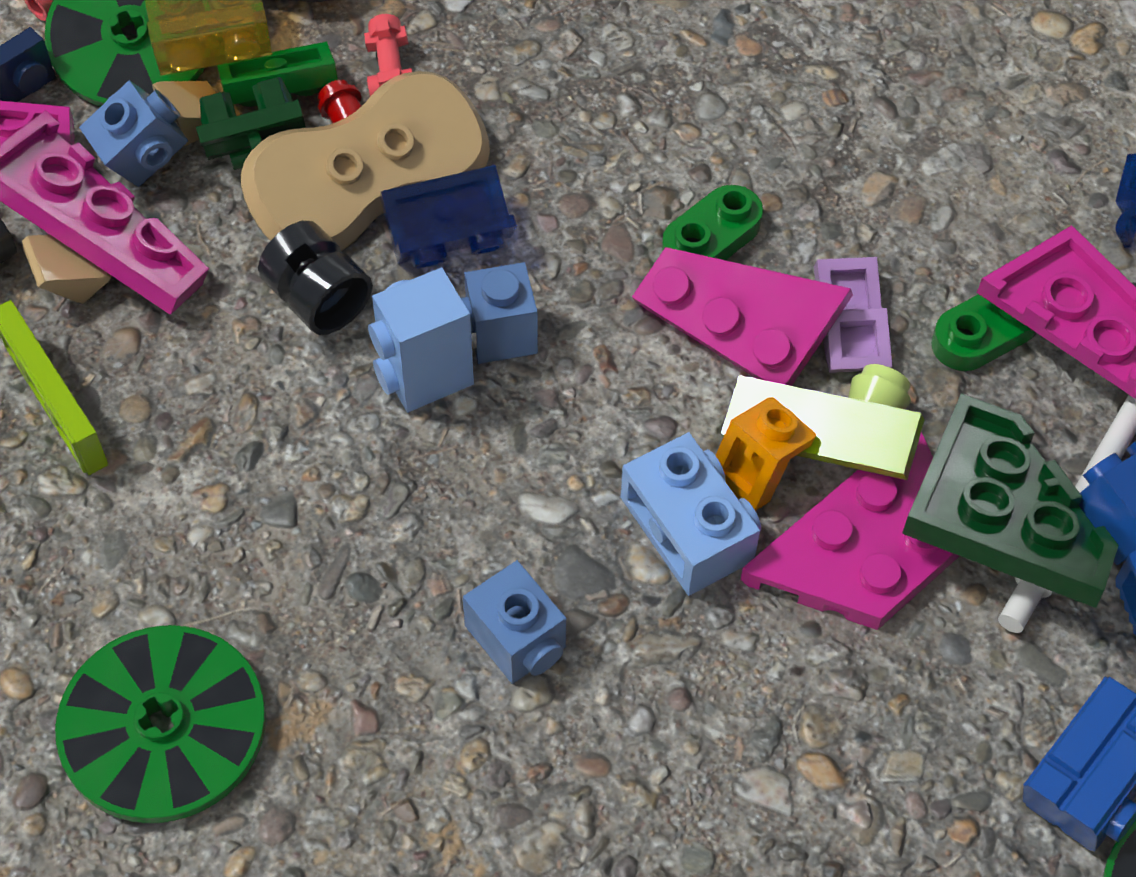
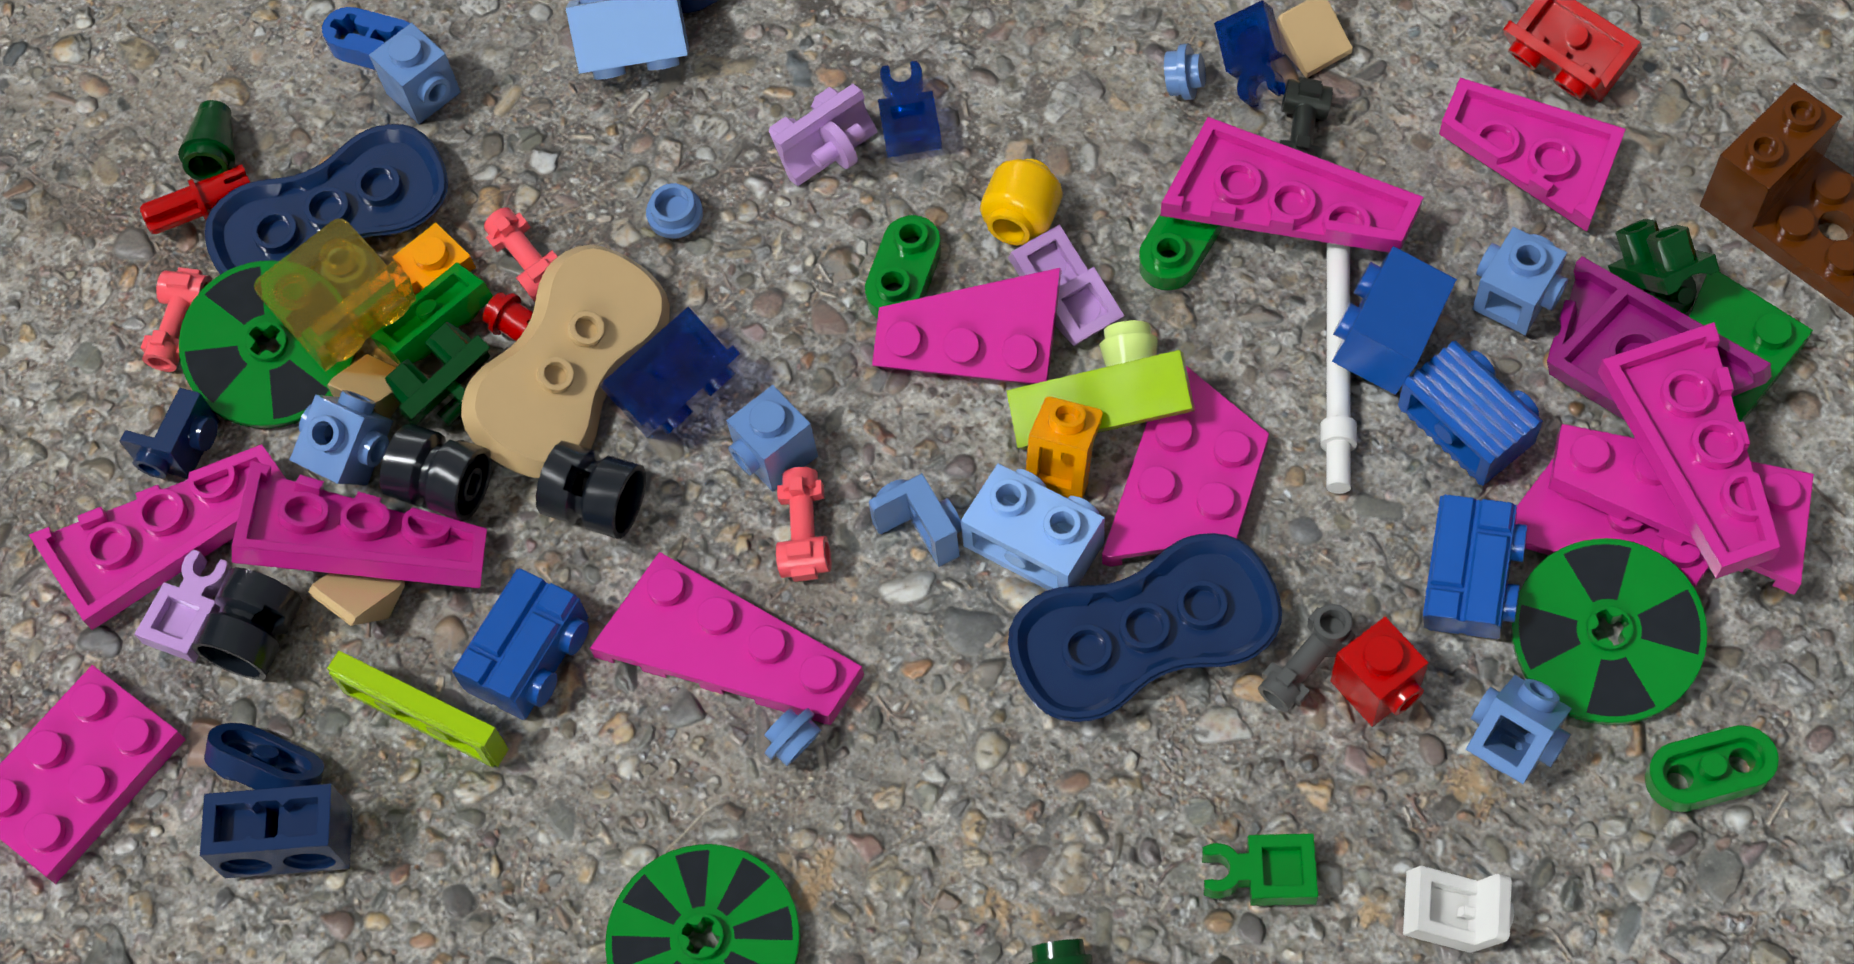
camera: 20 degrees left, 5 degrees up
(172, 378) = (522, 645): none -> blue brick
(194, 198) = (428, 470): none -> black wheel
(307, 27) = (431, 256): none -> light orange plate
(350, 471) = (707, 635): none -> dark pink wing
(354, 580) = (791, 735): none -> medium blue plate
(422, 340) = (725, 498): light blue brick -> none
(471, 428) = (804, 554): none -> coral bar
(515, 623) = (948, 700): medium blue brick -> none
(538, 87) = (674, 211): none -> medium blue plate
(590, 429) = (916, 501): none -> medium blue bracket
(708, 84) = (824, 134): none -> lavender hips
(794, 103) = (908, 114): none -> clear blue plate
(799, 658) = (1098, 645): none -> dark blue plate
(852, 219) = (1020, 201): none -> yellow head
(919, 760) = (1329, 634): none -> dark grey bar
(950, 817) = (1379, 672): none -> red brick
(1008, 507) = (1287, 391): dark green plate -> none
(1074, 182) = (1184, 72): none -> medium blue plate

